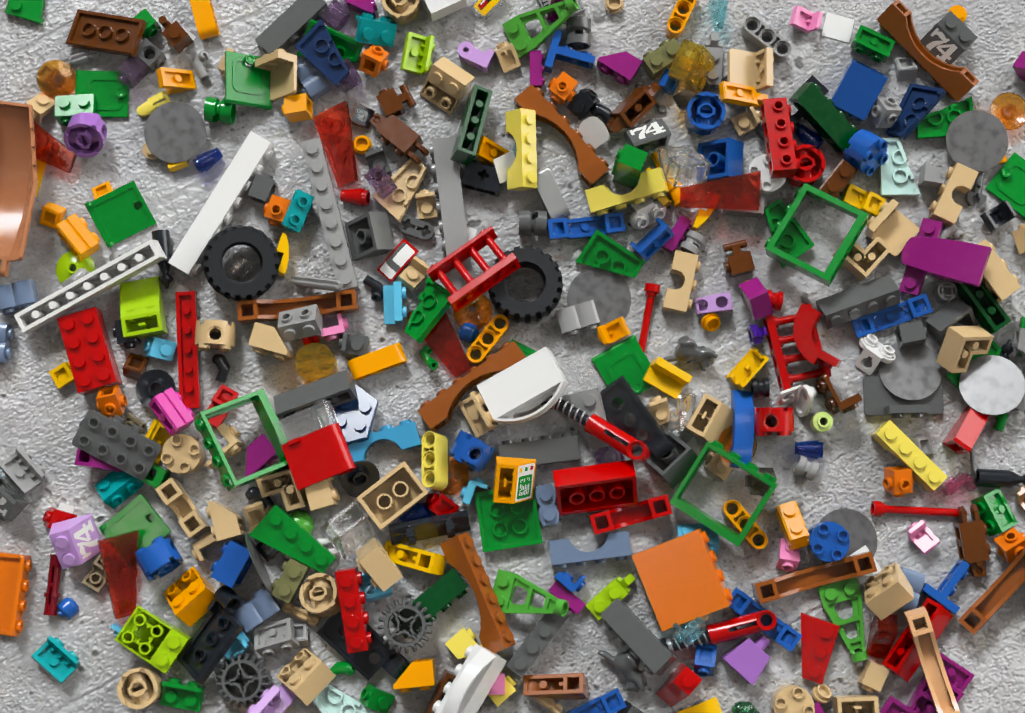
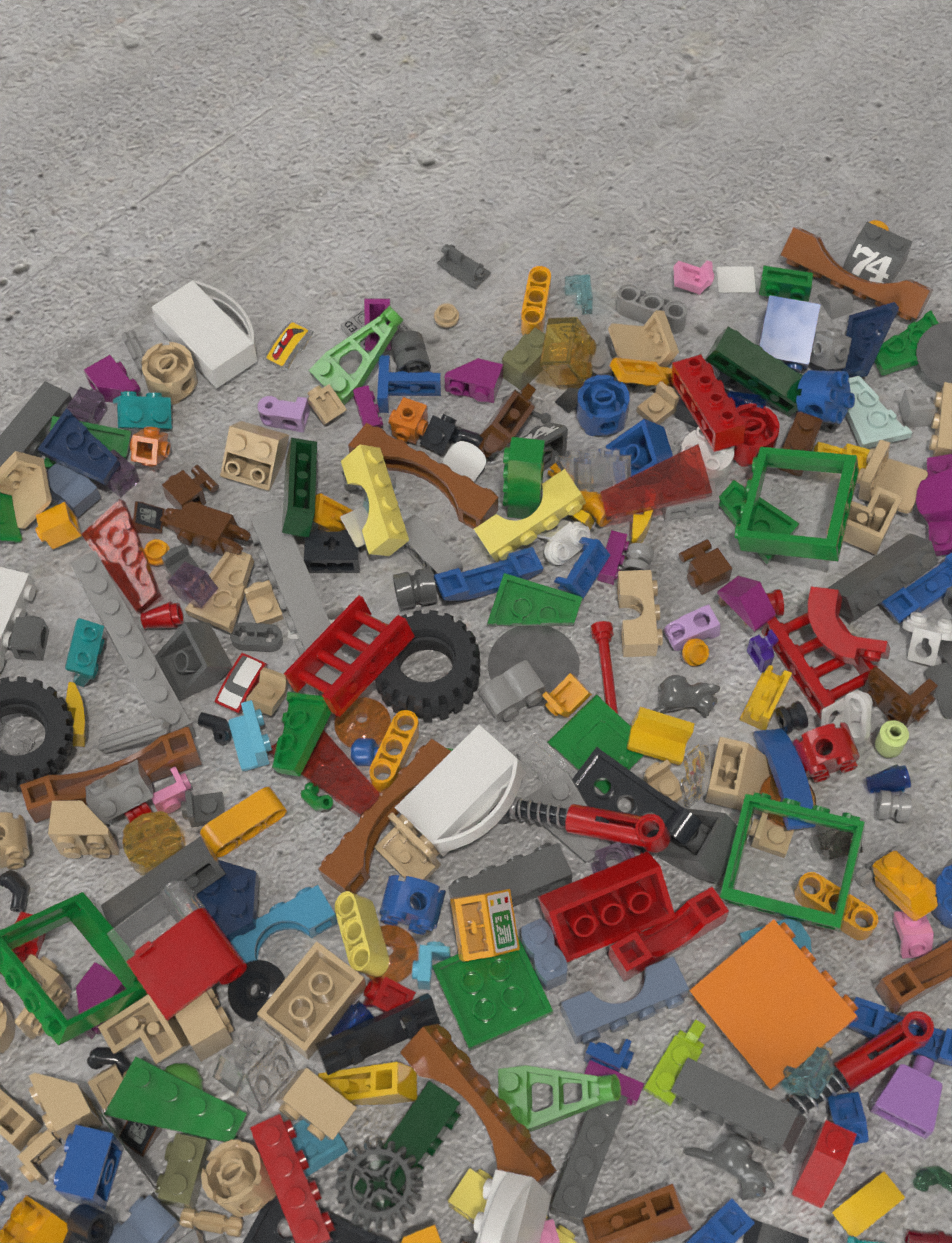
camera: 15 degrees left, 20 degrees down
(276, 210) = (53, 657): orange brick -> none
(417, 54) = (206, 427): lime bracket -> none
(667, 83) = (543, 384): blue plate -> none

